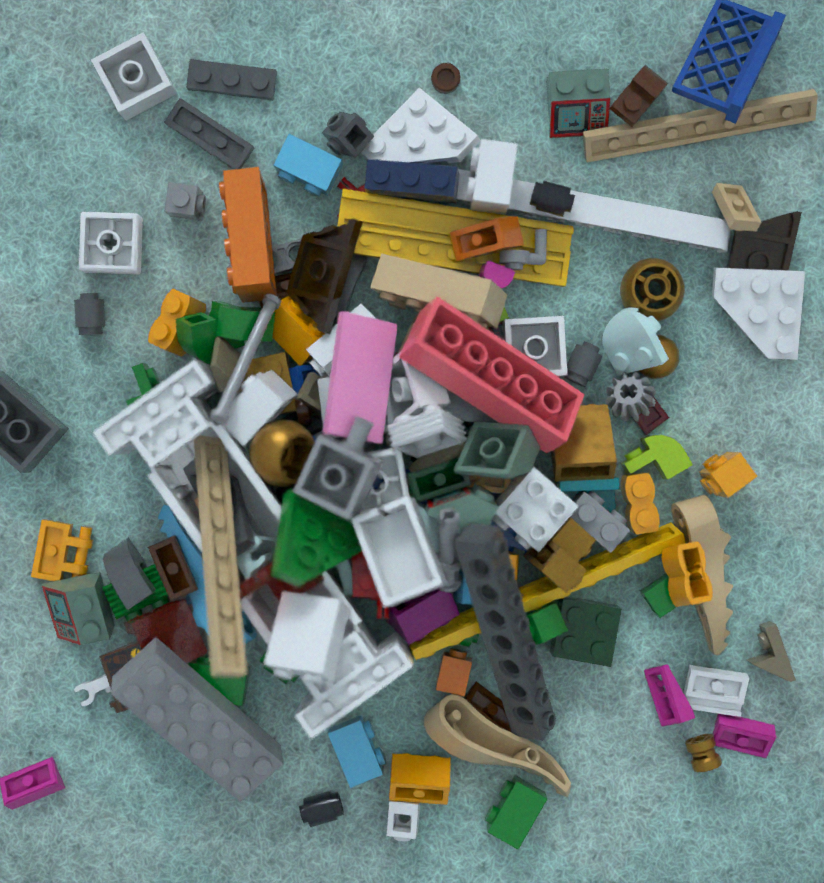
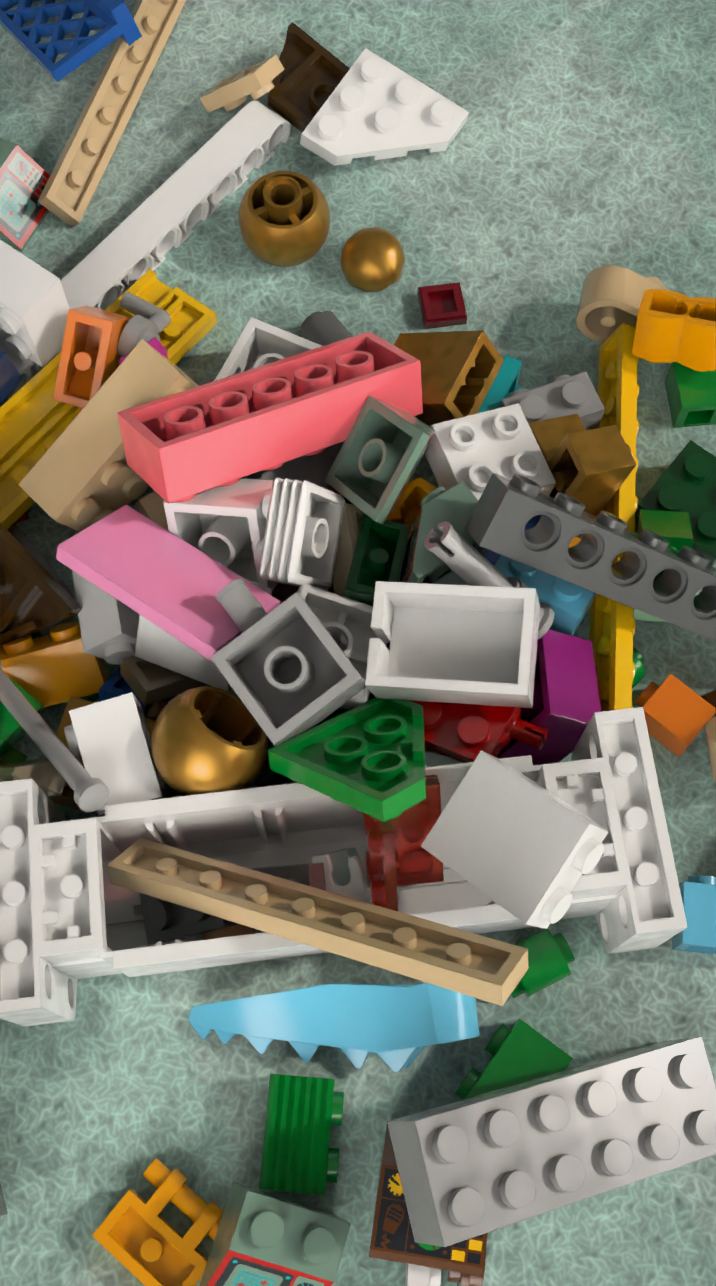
camera: 65 degrees left, 20 degrees down
(126, 575) = (261, 1127): dark grey brick -> none
(172, 626) = (380, 1092): clear red bracket -> none
(173, 568) = (293, 1047): reddish brown slope -> none
(552, 198) = (92, 259): black brick -> none
(633, 342) = (337, 263): light aqua slope -> none
(638, 95) = (37, 118): reddish brown brick -> none
(638, 389) = (406, 303): light grey gear -> none
(640, 511) = (549, 354): light orange brick -> none
(664, 452) = (505, 304): lime brick -> none
(726, 474) = (571, 238): light orange brick -> none

